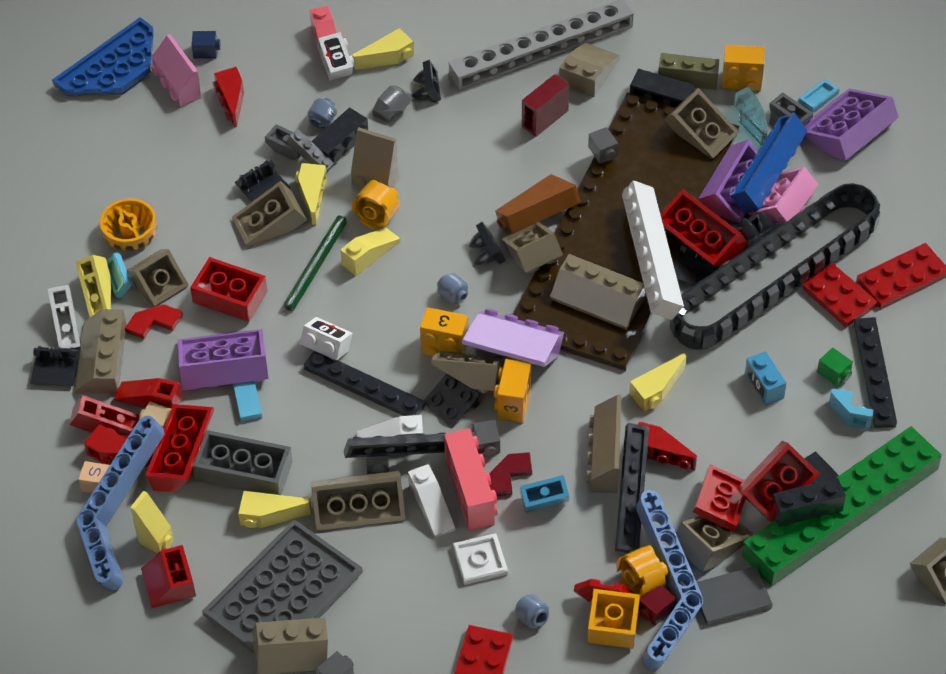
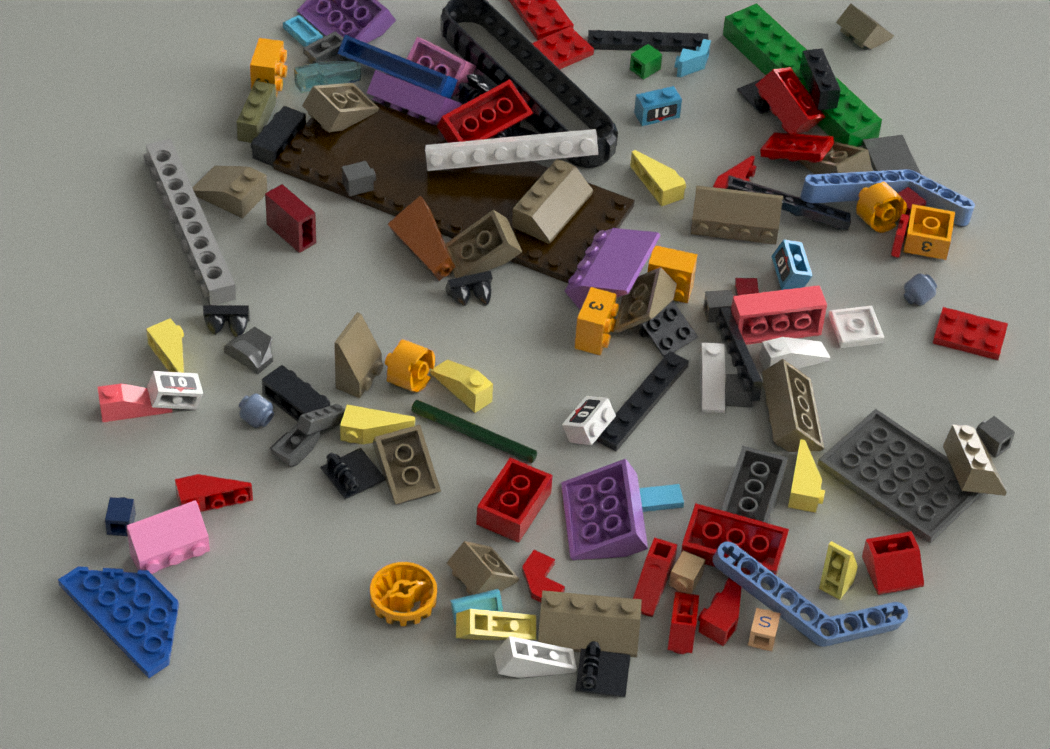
camera: 90 degrees left, 5 degrees down
(452, 288) = (528, 316): sand blue head -> none

